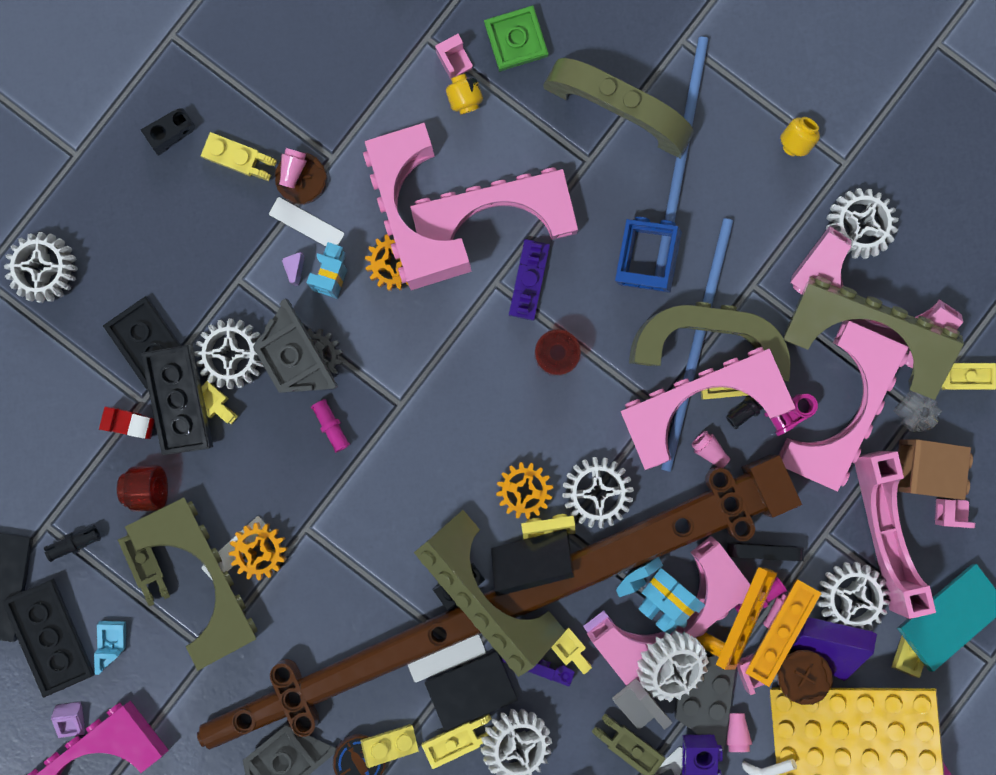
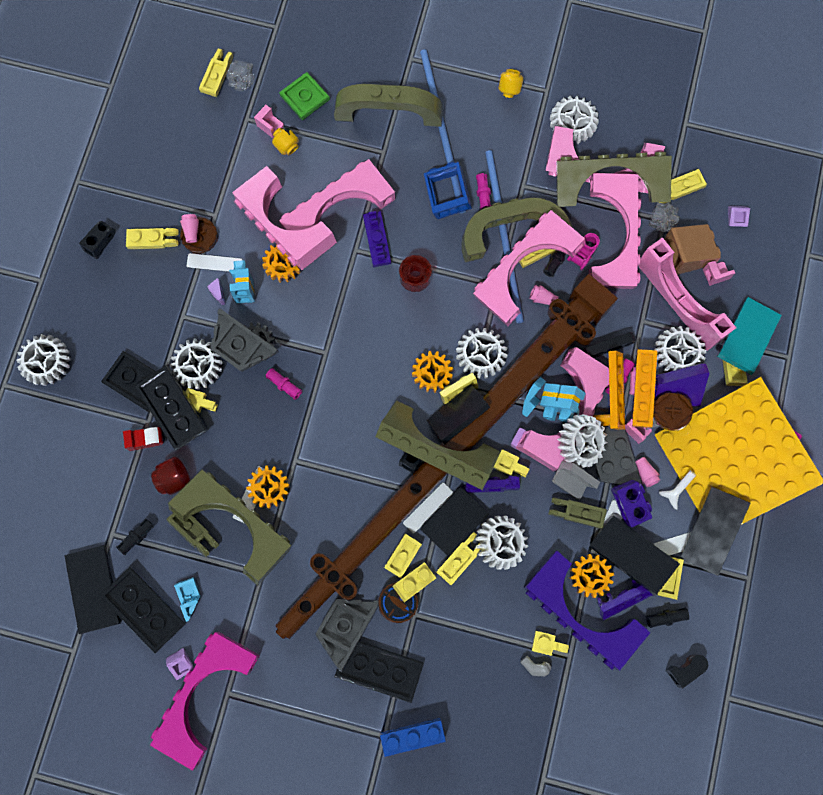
camera: 25 degrees left, 10 degrees down
(389, 707) = (403, 556): none -> light yellow plate
(696, 275) = (483, 190): none -> dark pink pin

